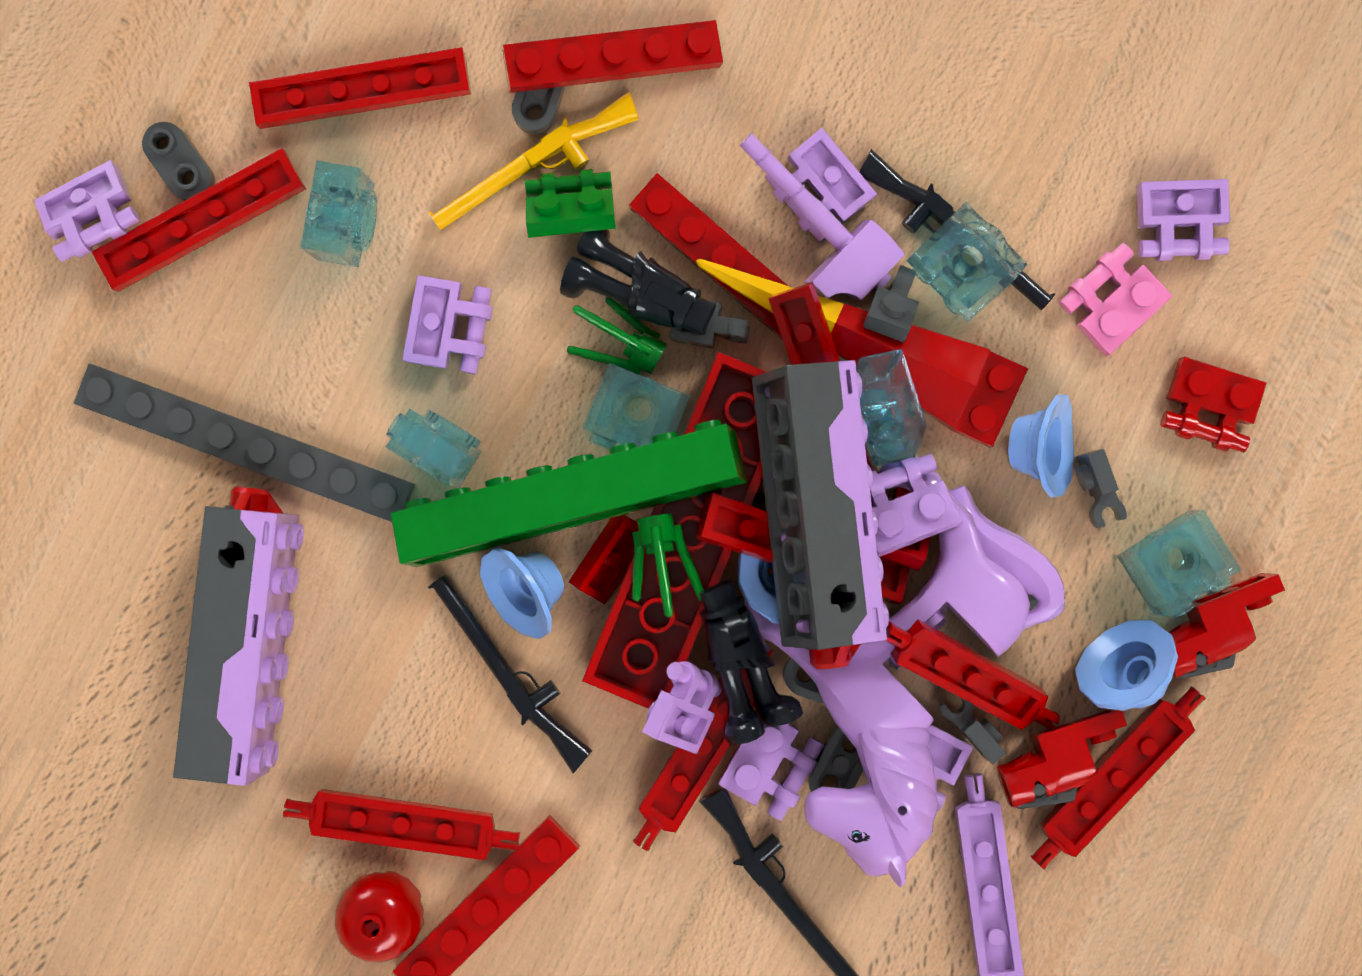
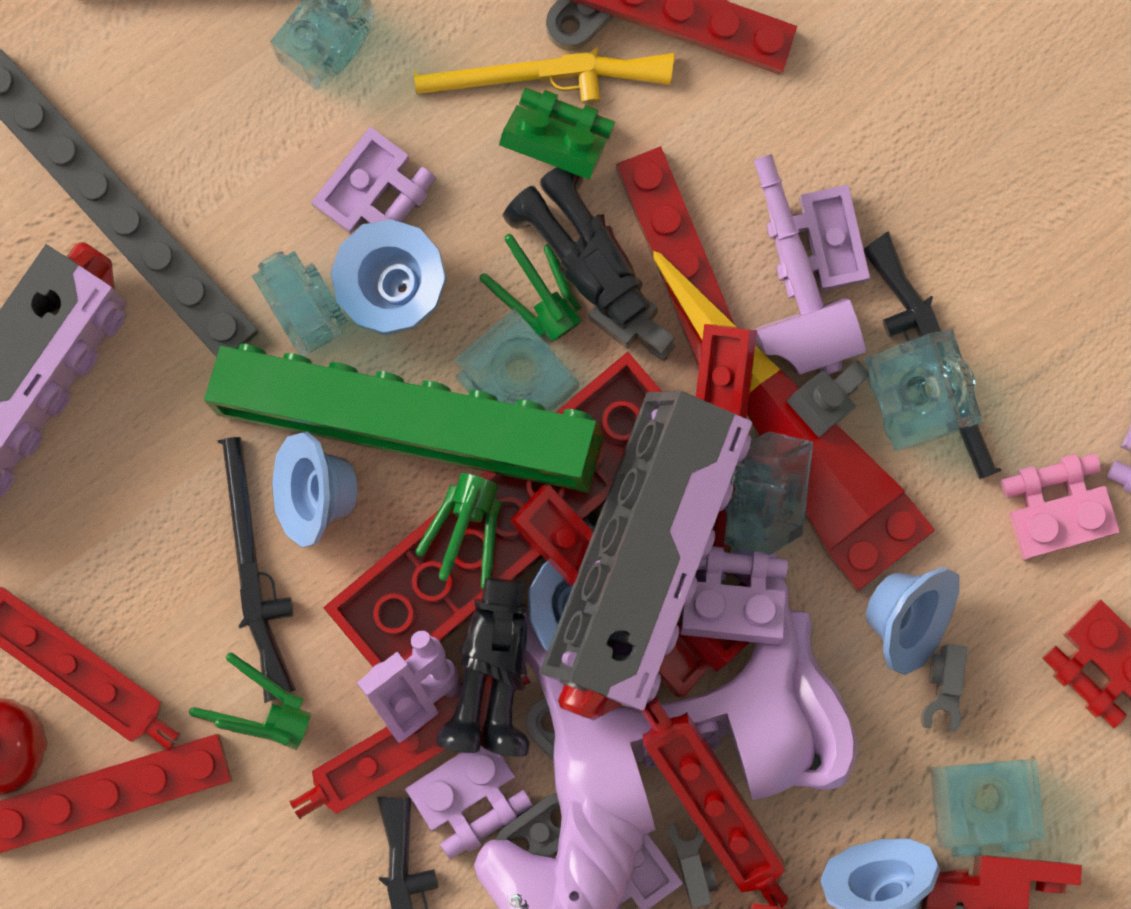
camera: 30 degrees right, 5 degrees down
(480, 388) = (375, 267): none -> light blue hat
(596, 785) = (282, 723): none -> green plant
(606, 559) = (409, 504): red plate -> none

